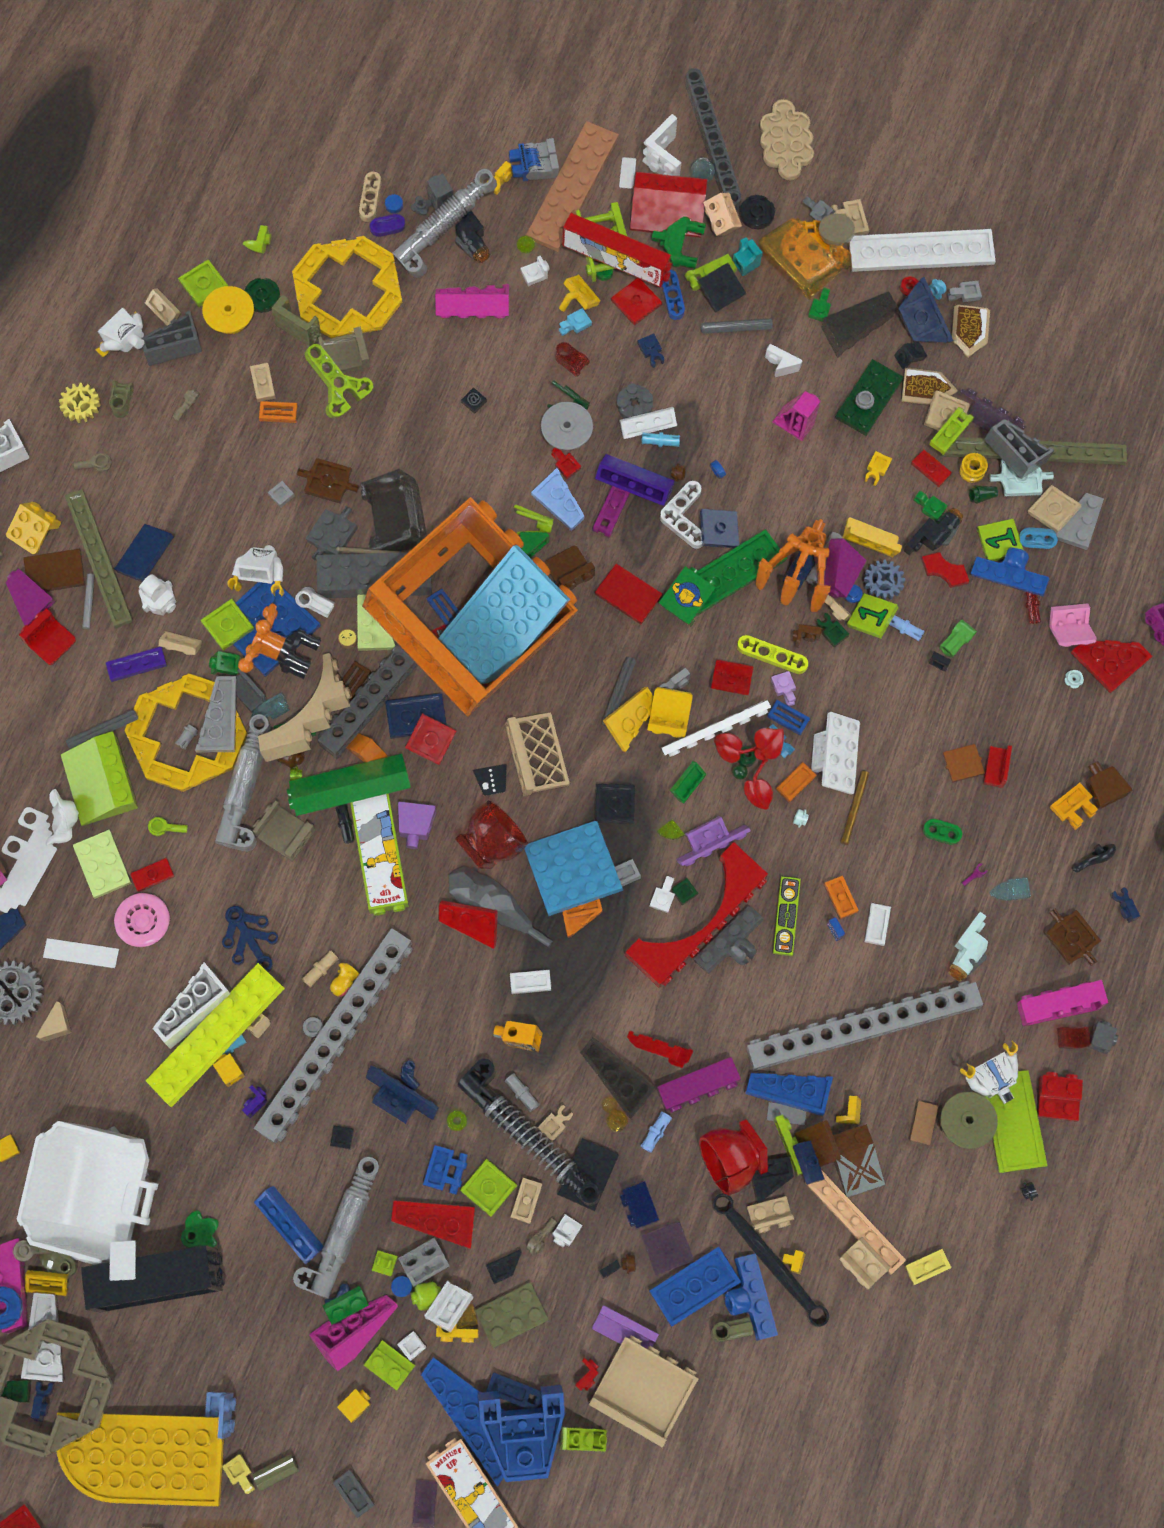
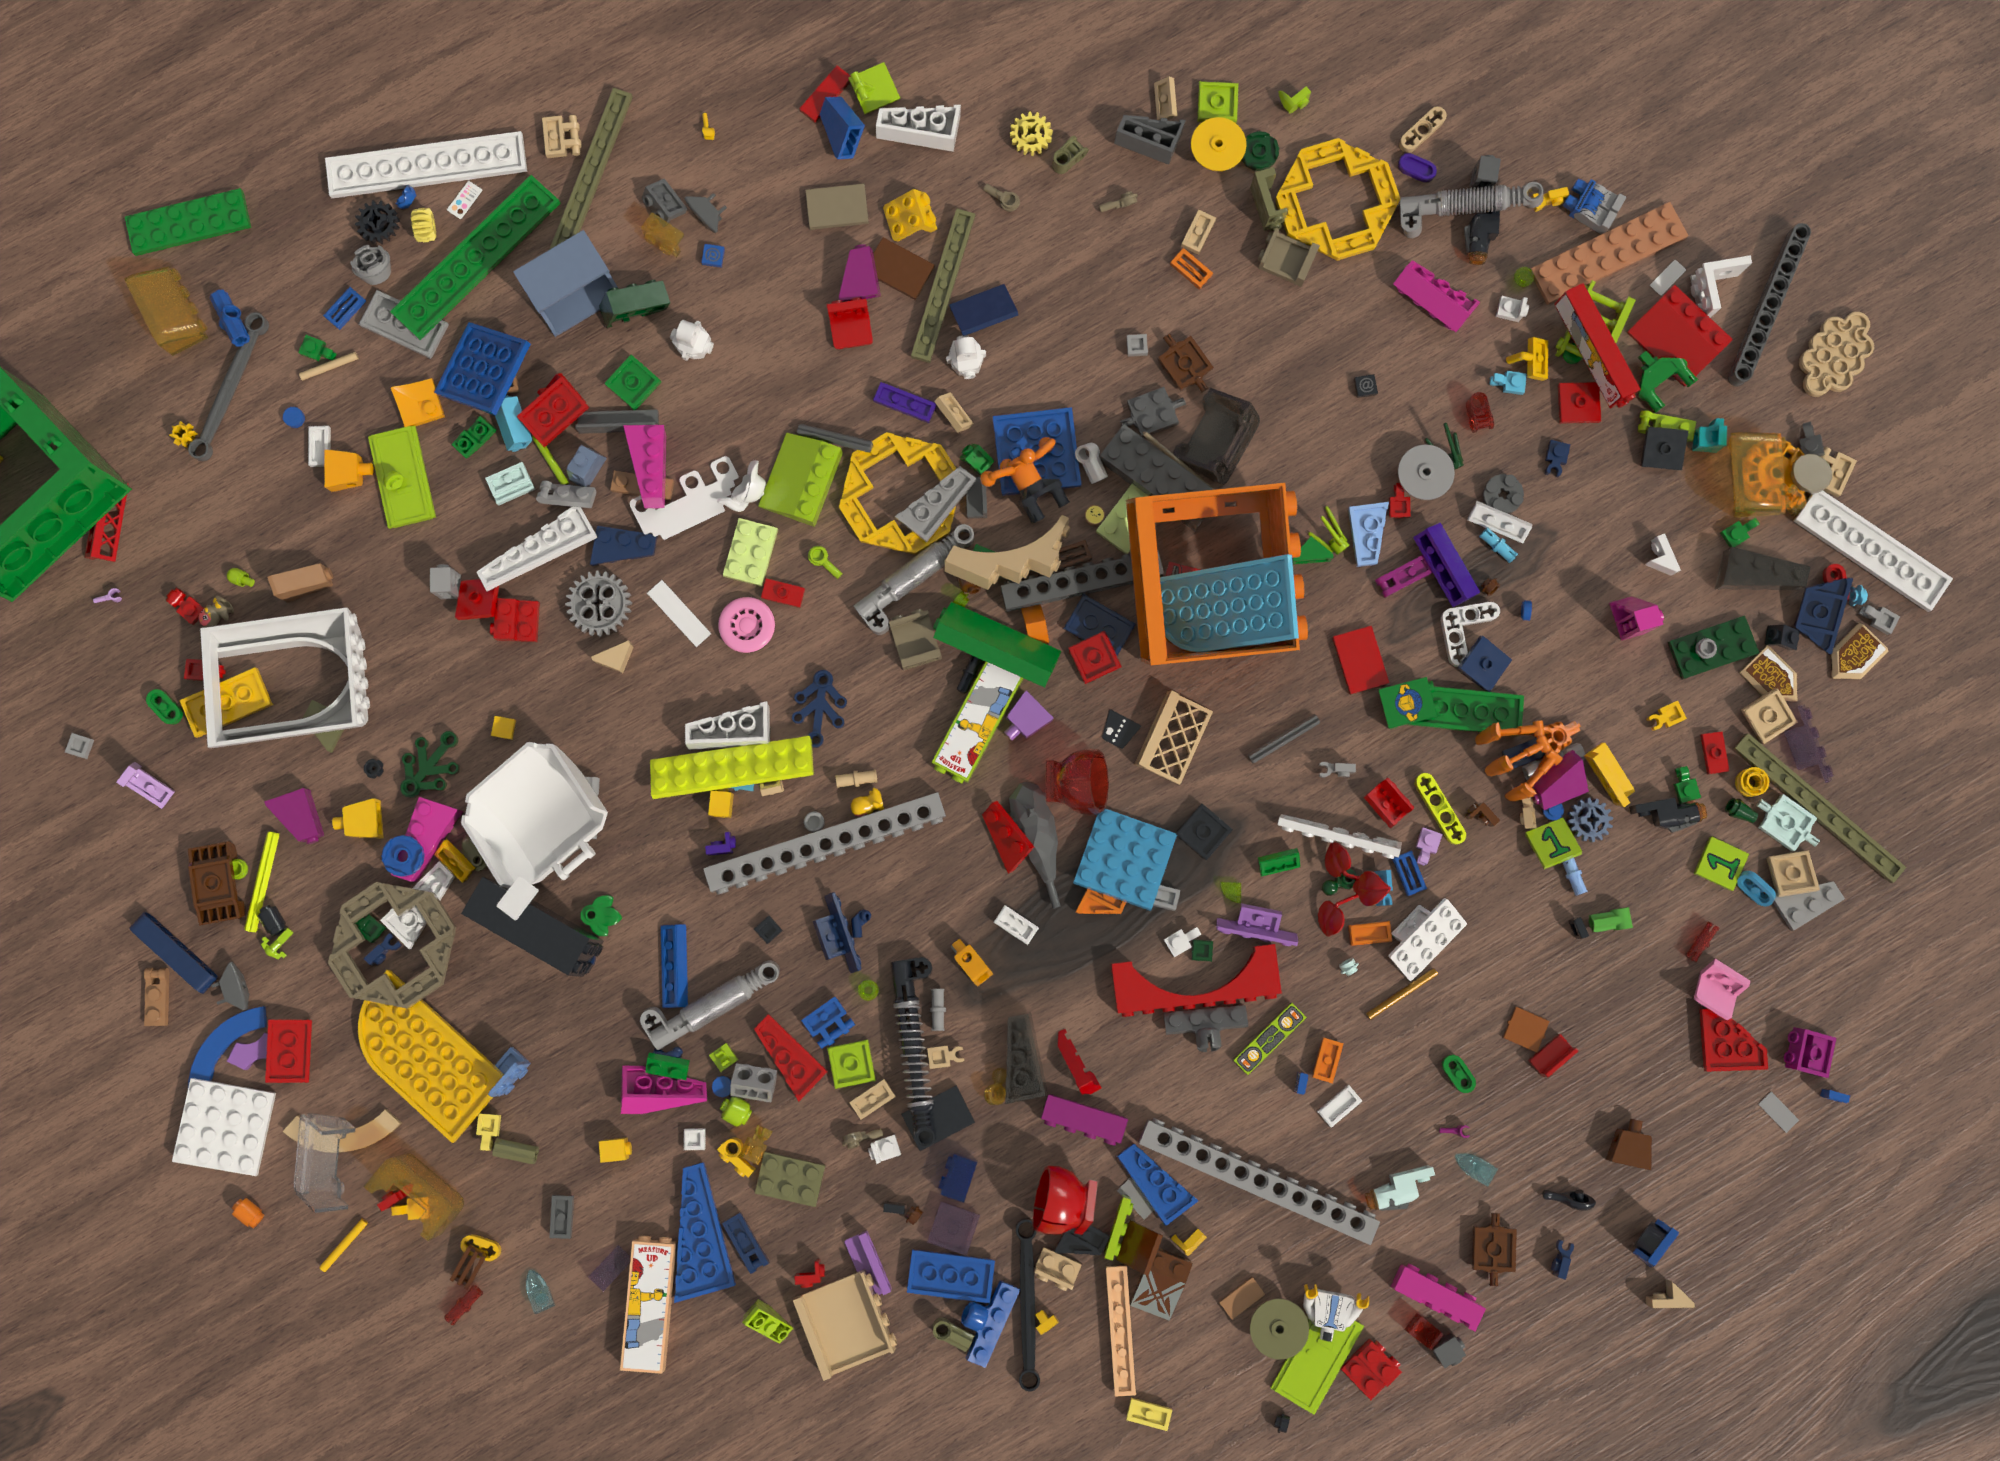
camera: 40 degrees right, 10 degrees up
(23, 1251) = (453, 825): dark tan plate -> none
(88, 601) = (907, 316): light grey piece -> none
(121, 333) = (1112, 98): white torso -> none
(186, 736) = (898, 497): light grey pin -> none
(227, 624) = (1004, 427): lime tile -> none
(258, 566) = (1069, 396): white torso -> none
(273, 707) = (986, 527): clear light blue plate -> none
(335, 394) = (1250, 290): lime beam -> none
(389, 1365) = (665, 1140): lime plate -> none
(394, 203) = (1438, 152): blue tile -> none
(421, 210) = (1459, 177): dark grey plate -> none
(435, 596) = (1196, 535): blue tile -> none
(448, 1306) = (744, 1135): white plate -> none
(503, 1267) = (813, 1136): black tile -> none
(523, 1438) = (721, 1283): blue wedge -> none
(570, 568) = (1328, 599): reddish brown bracket -> none
(629, 717) = (1275, 767): yellow wing -> none
(656, 1132) = (1019, 1128): light blue pin -> none
(670, 712) = (1311, 792): yellow bracket -> none
(671, 301) = (1609, 426): blue beam -> none
(702, 168) = (1737, 325): clear light blue head -> none
(722, 214) = (1720, 382): light nougat brick -> none
(738, 325) = (1649, 493): dark grey axle -> none
(757, 212) = (1754, 401): black tile -> none
(808, 1162) = (1120, 1255): dark blue plate -> none
(833, 632) = (1508, 830): dark green plate -> none
(864, 1263) = (1100, 1369): tan bracket -> none
(937, 566) = (1647, 843): red tile -> none
(951, 431) = (1759, 735): lime plate -> none
(1011, 572) = (1706, 900): blue plate -> none
(1017, 449) = (1804, 797): dark grey wedge -> none
(1073, 801) = (1589, 1136): light orange plate -> none
(1074, 674) = (1688, 1034): light aqua plate -> none

